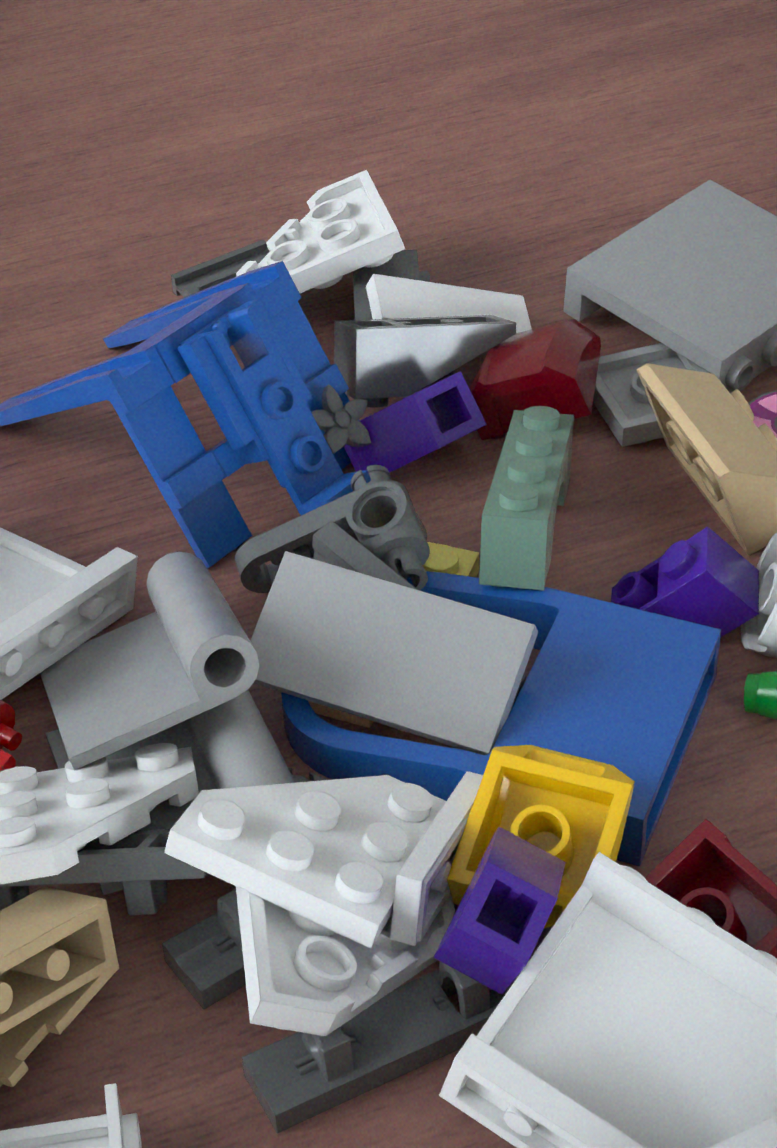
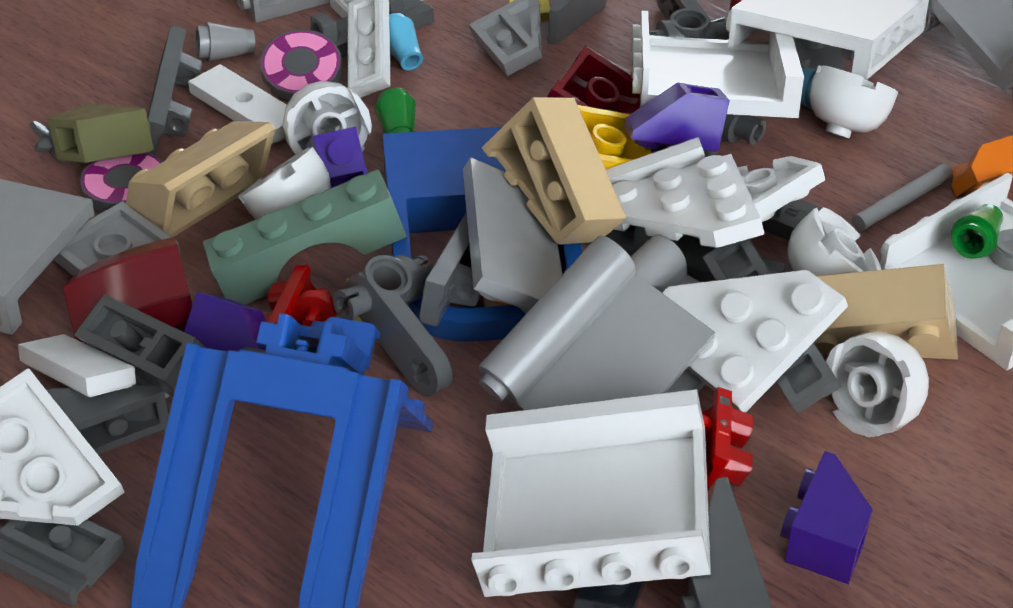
camera: 120 degrees left, 0 degrees up
(136, 1008) = (828, 246): none -> white cylinder
(443, 491) = (300, 299): none -> red hips
(449, 700) = (558, 170): none -> tan wedge
(644, 516) = (287, 184): none -> white cylinder

